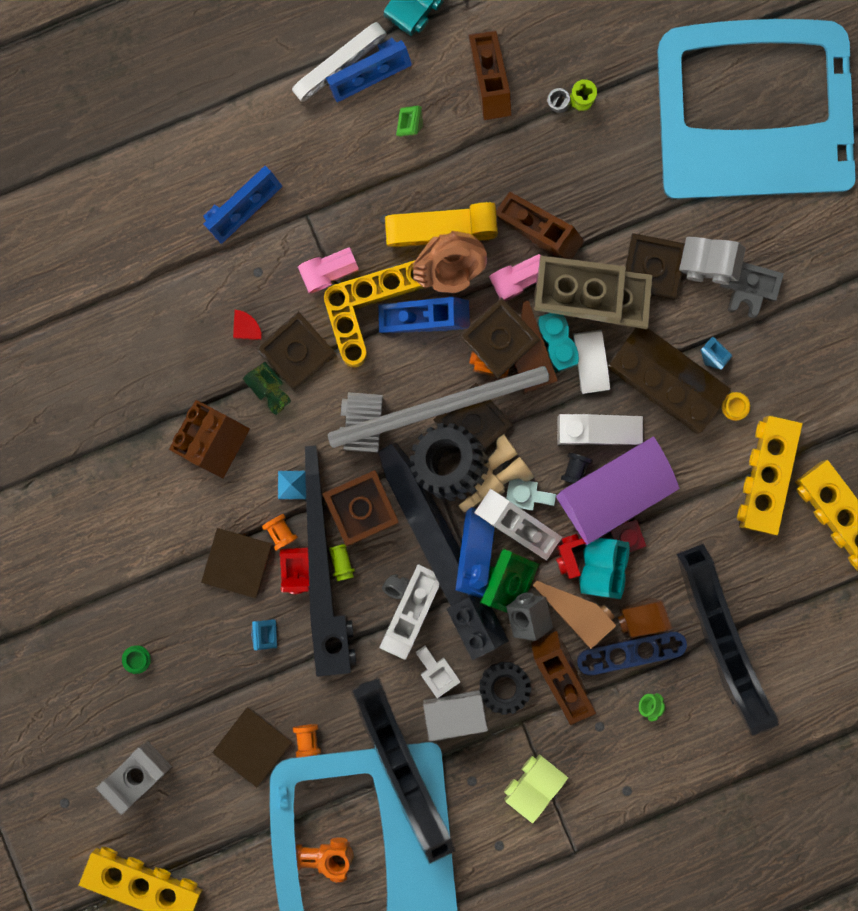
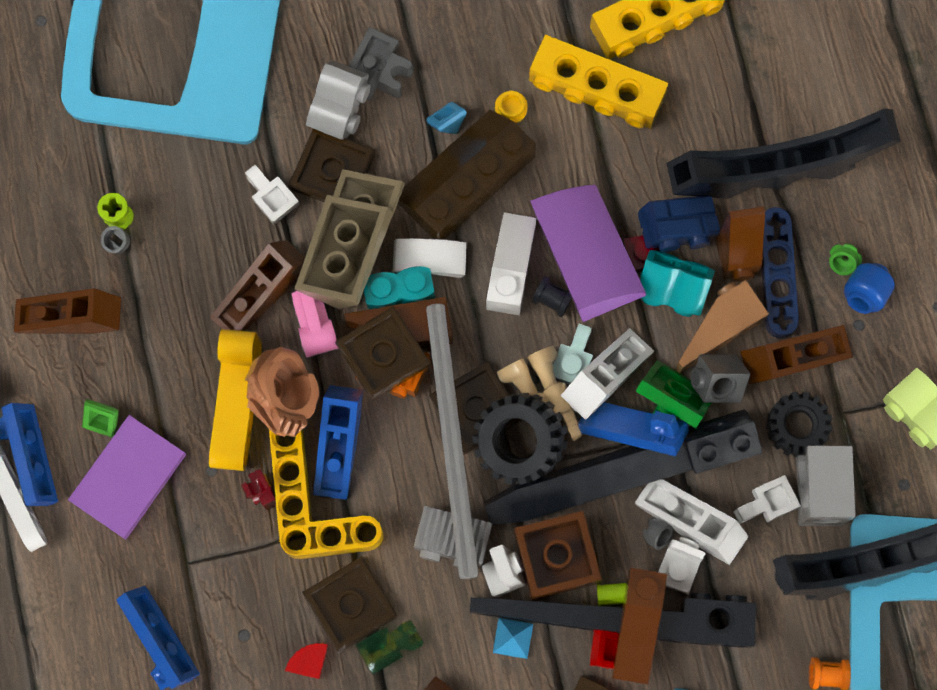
camera: 75 degrees left, 10 degrees down
(279, 532) = (569, 662): orange bush -> none
(314, 582) = (639, 625): none -> reddish brown slope
(321, 272) = (260, 555): bright pink piece -> none
(341, 468) = (504, 571): none -> white bracket
(366, 153) = (127, 477): none -> medium lavender tile
(372, 261) = (259, 490): none -> dark red plate
(372, 608) = (681, 564): none -> white bracket
(567, 562) = (660, 325): red bracket -> none
(619, 222) = (272, 197): none -> white plate
(630, 729) = (869, 288): none -> blue head
(657, 563) = (678, 223): none -> dark blue brick

